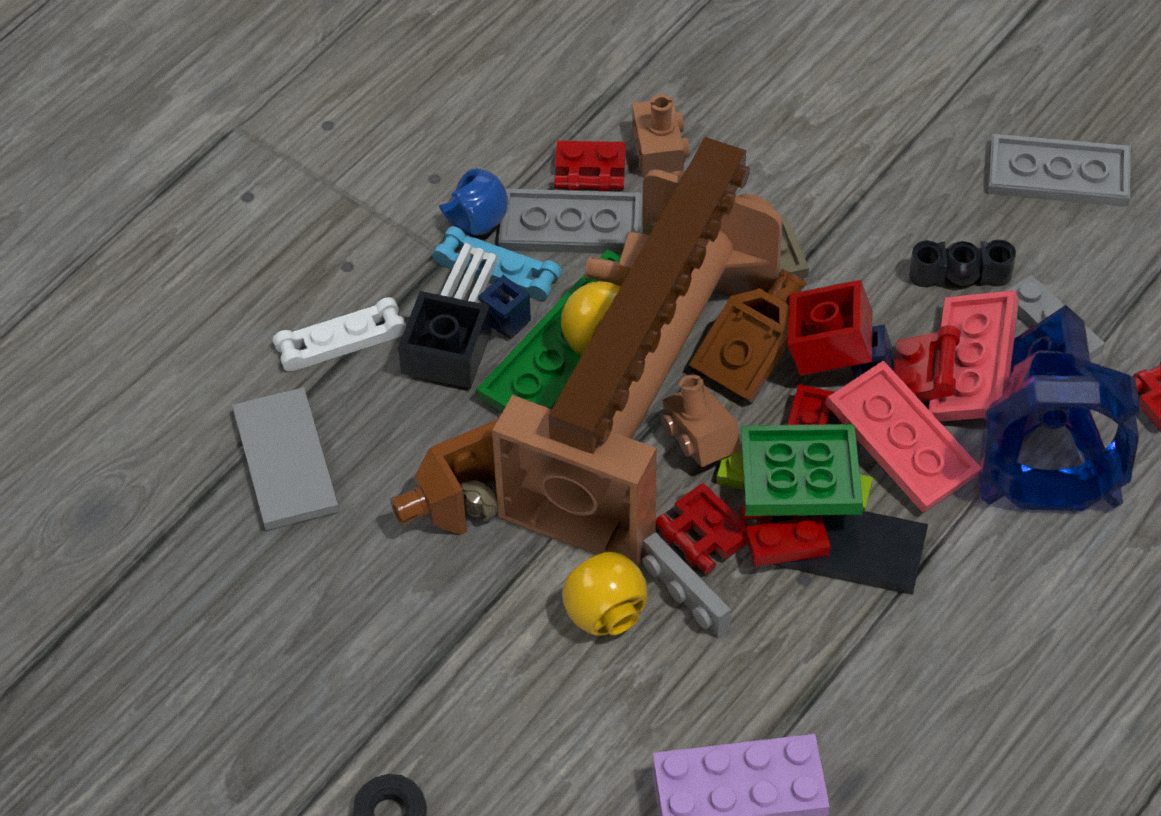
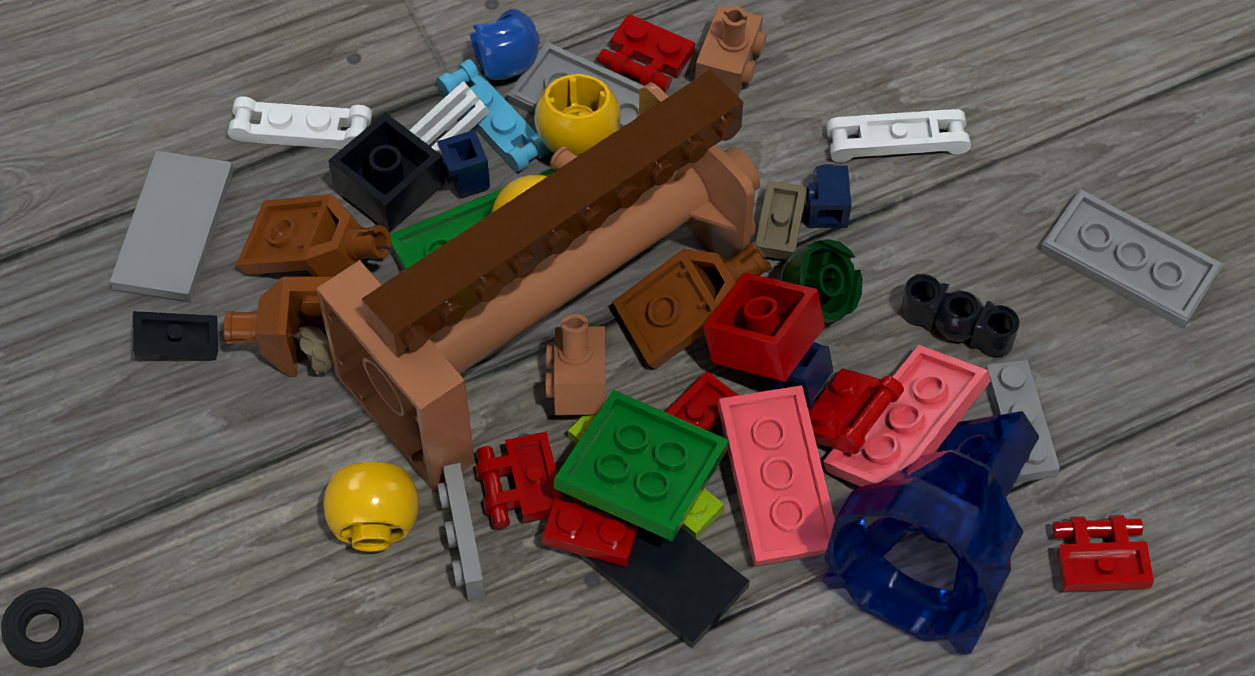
camera: 25 degrees right, 5 degrees up
(350, 540) = (175, 335): none -> black plate
(415, 414) = (309, 236): none -> dark orange plate
(578, 229) = (576, 113): none -> yellow wheel
(809, 215) = (829, 197): none -> dark blue brick
(828, 148) = (898, 134): none -> white plate
(844, 264) = (828, 269): none -> dark green cylinder

